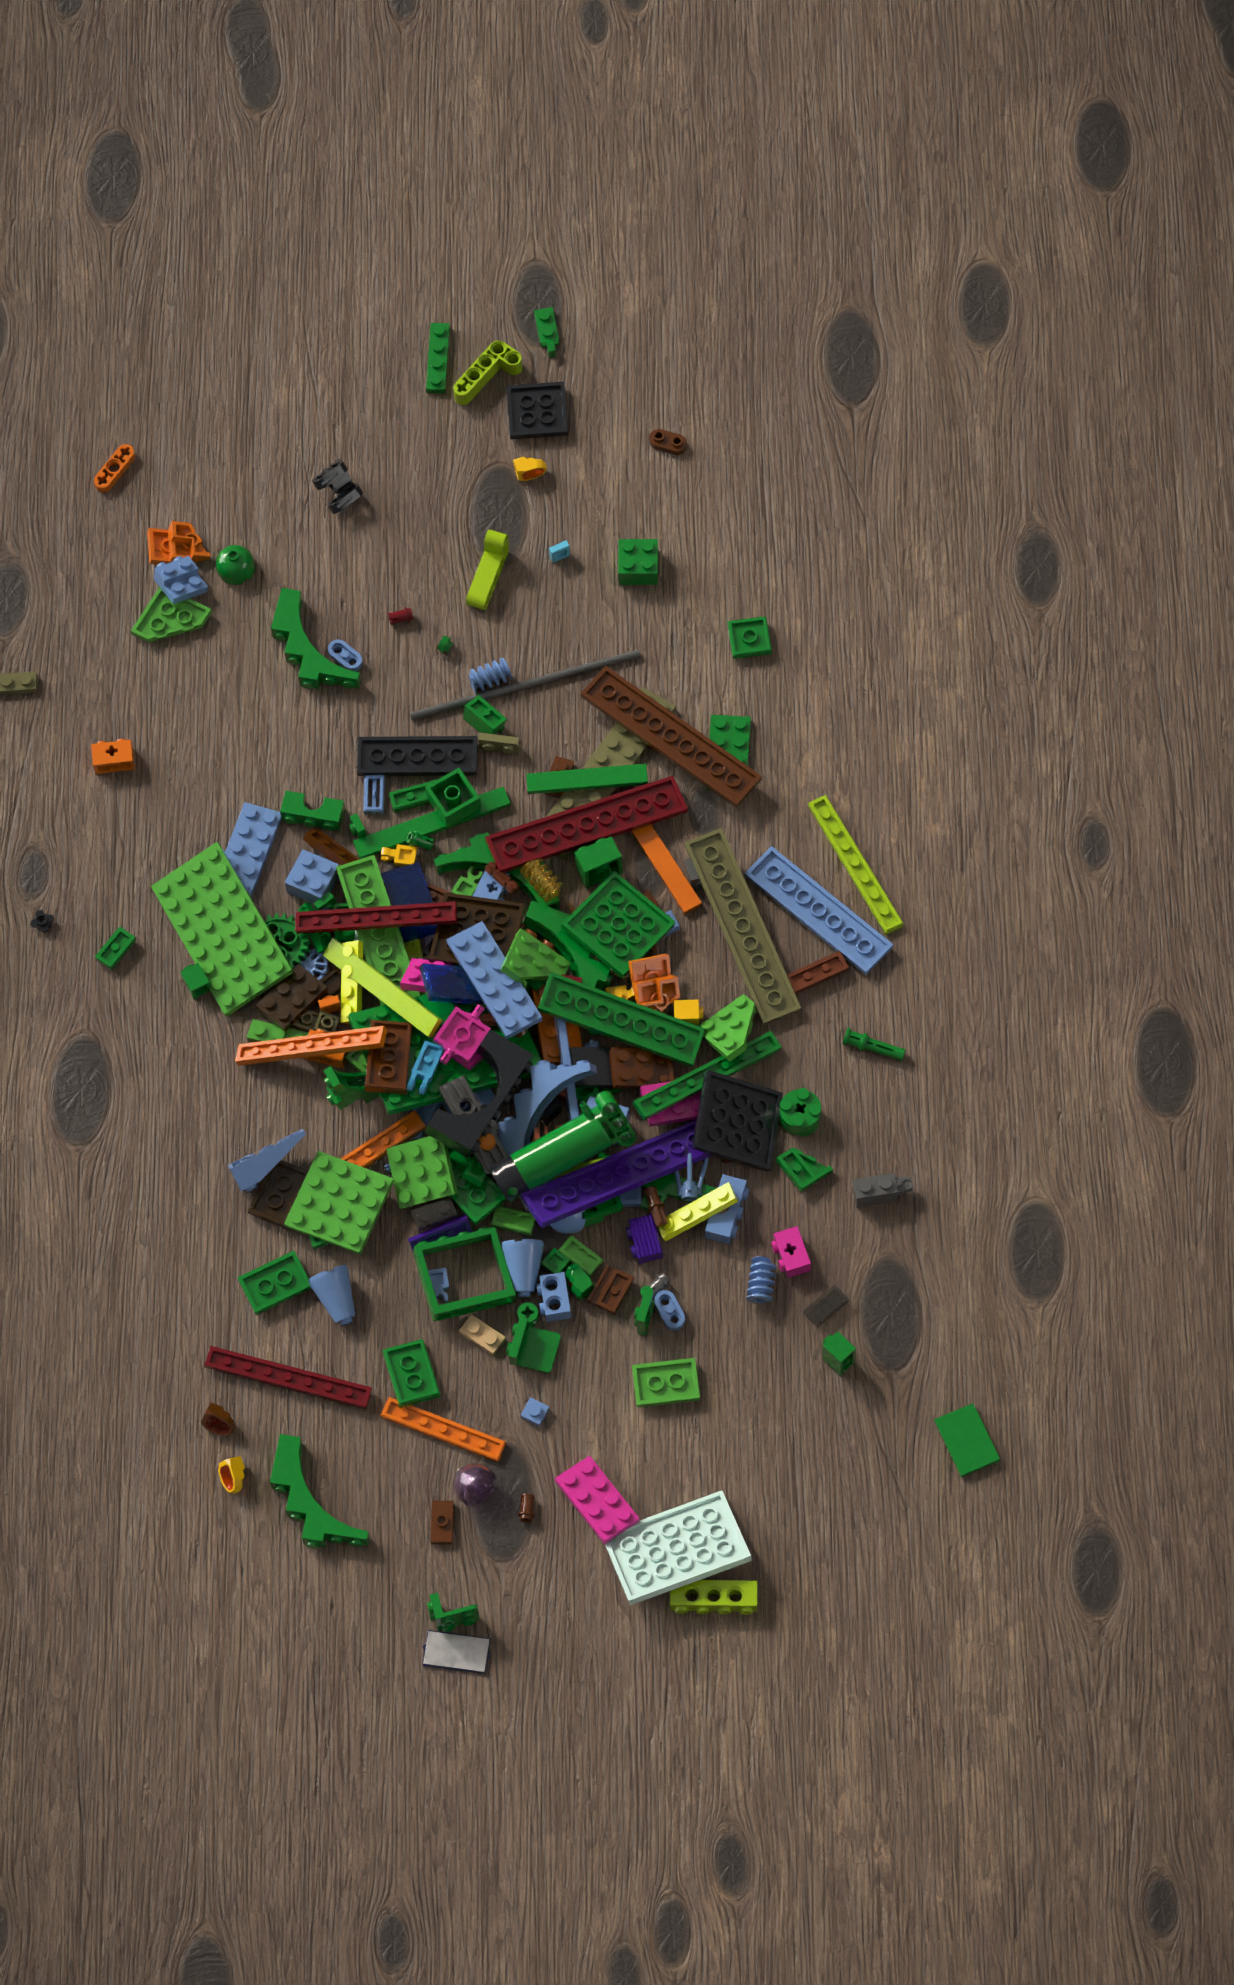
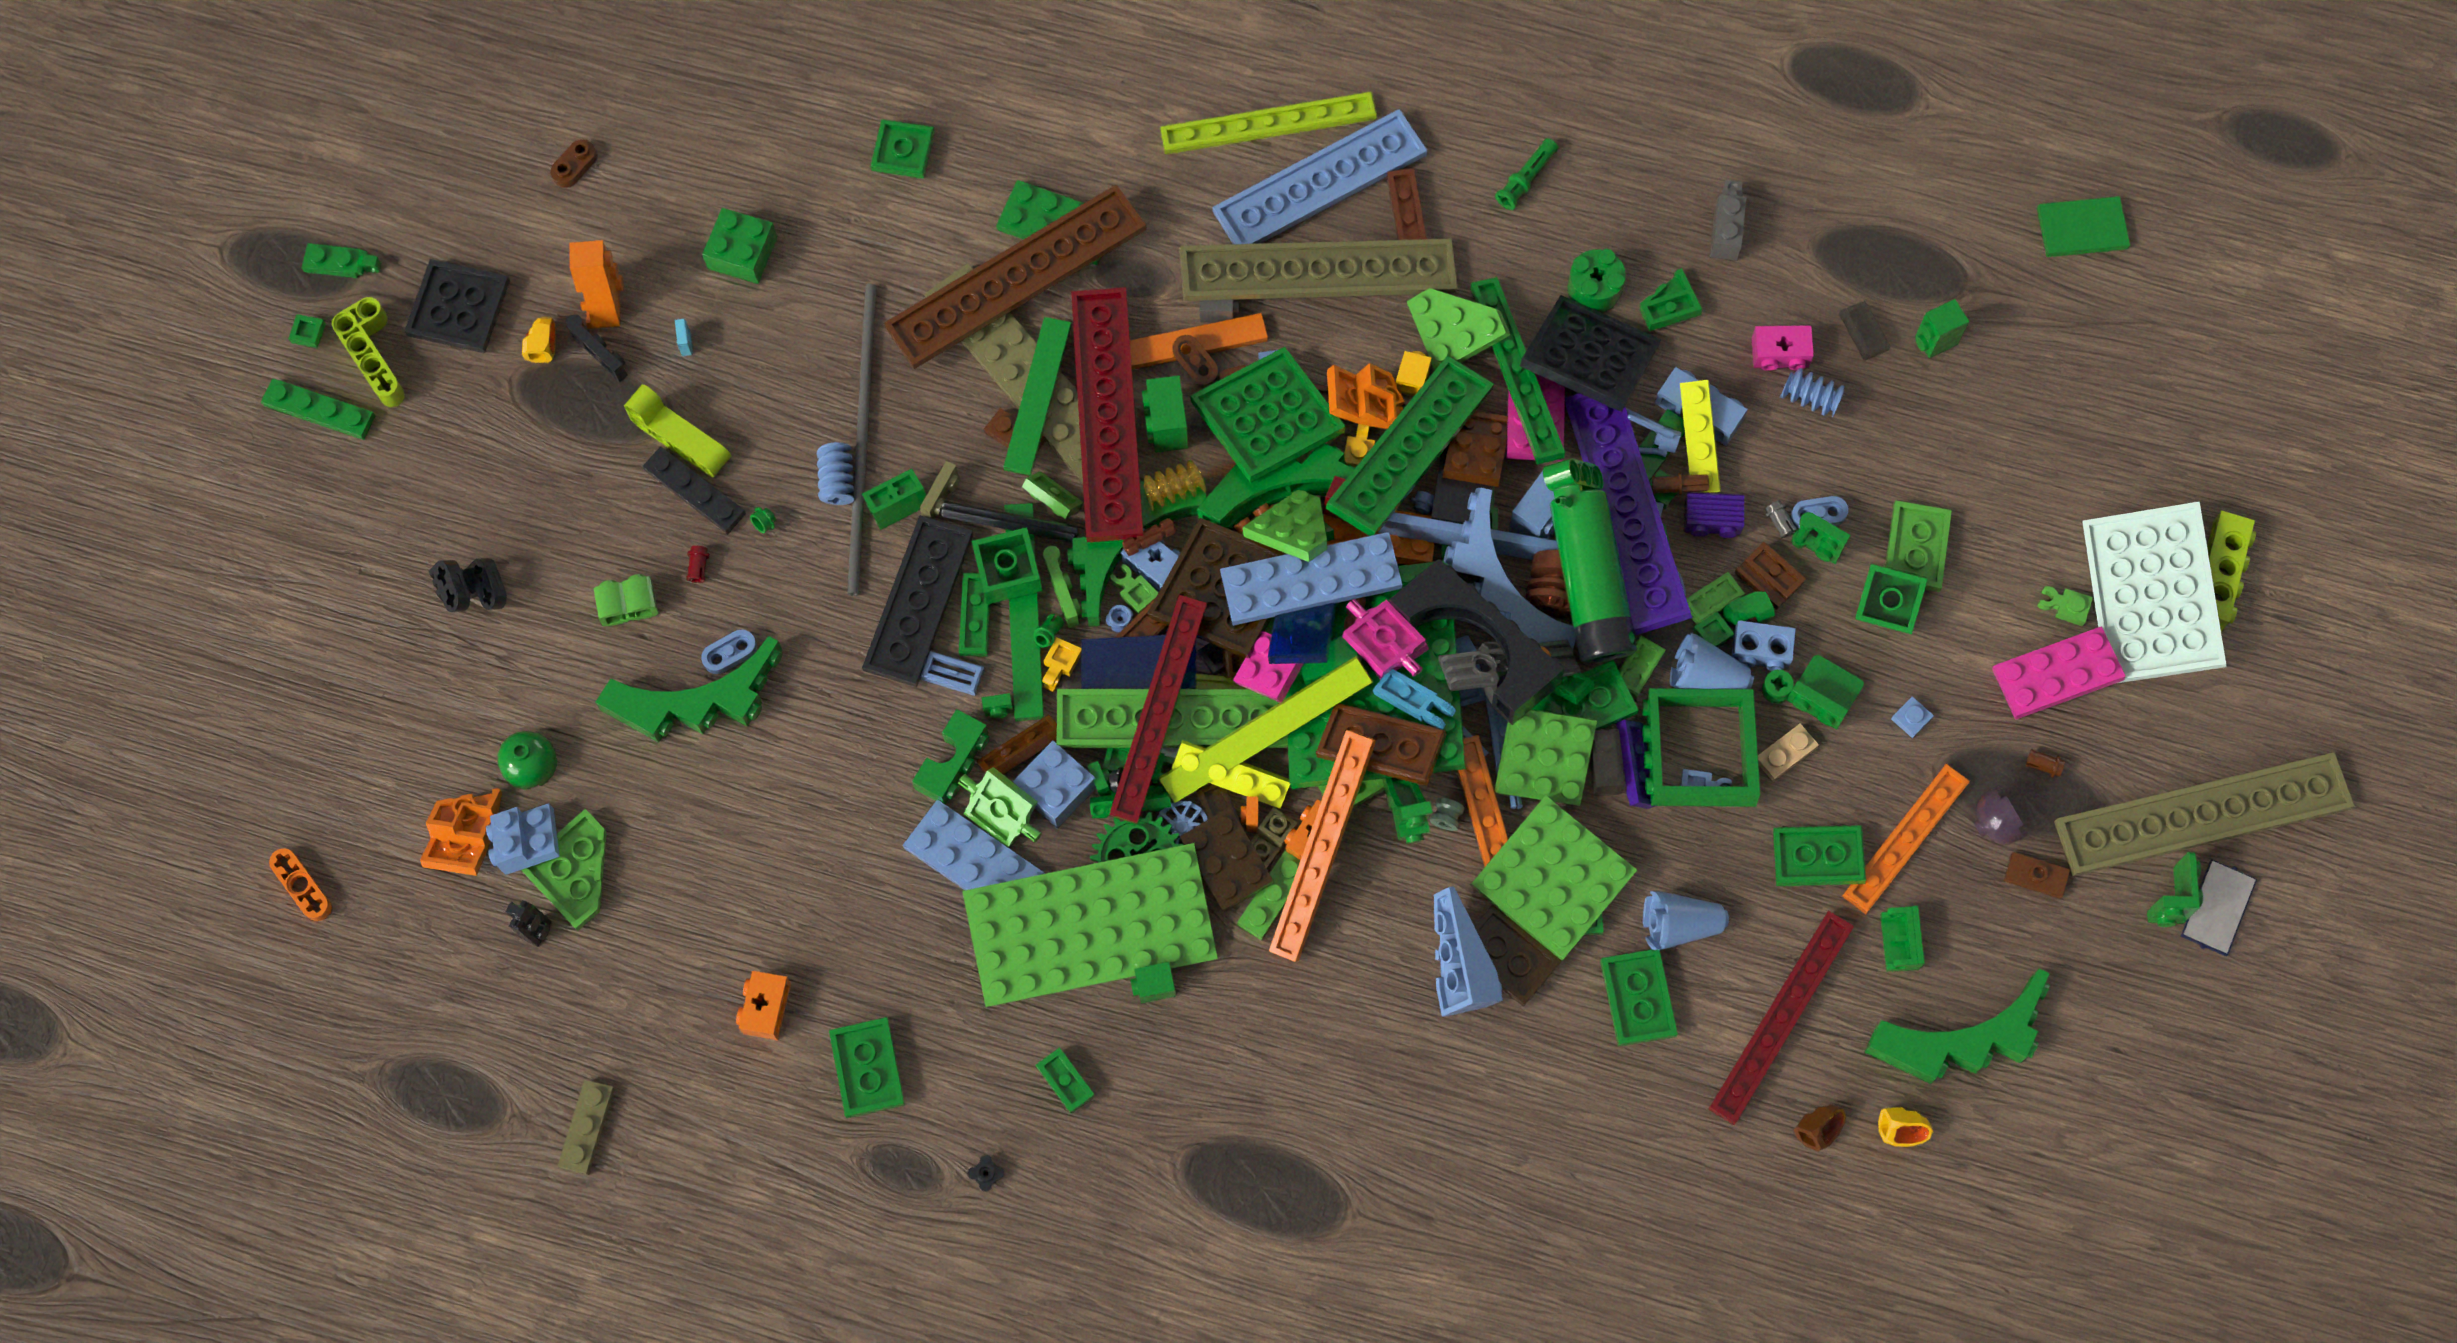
camera: 75 degrees left, 5 degrees up
(90, 829) = (866, 1067): none -> green plate
(123, 601) = (528, 922): none -> black hinge
(285, 849) = (1000, 807): none -> plate
(360, 582) = (625, 600): none -> bright green brick
(367, 1126) = (1447, 814): none -> sand green wheel
(367, 1443) = (1902, 939): none -> green hinge
(445, 878) = (1119, 611): none -> medium blue plate
(453, 597) = (694, 490): none -> black plate
(454, 838) = (1061, 585): none -> bright green plate
(489, 330) = (307, 331): none -> green plate
(490, 792) = (1009, 521): none -> black axle
(520, 810) = (1052, 494): none -> bright green plate
(522, 1625) = (2203, 814): none -> olive plate
(533, 502) = (596, 347): none -> black plate
(575, 483) = (598, 281): none -> orange wedge
(613, 1368) = (1891, 598): none -> green brick
(647, 868) = (1194, 359): none -> reddish brown plate
(655, 1499) = (2070, 605): none -> bright green plate

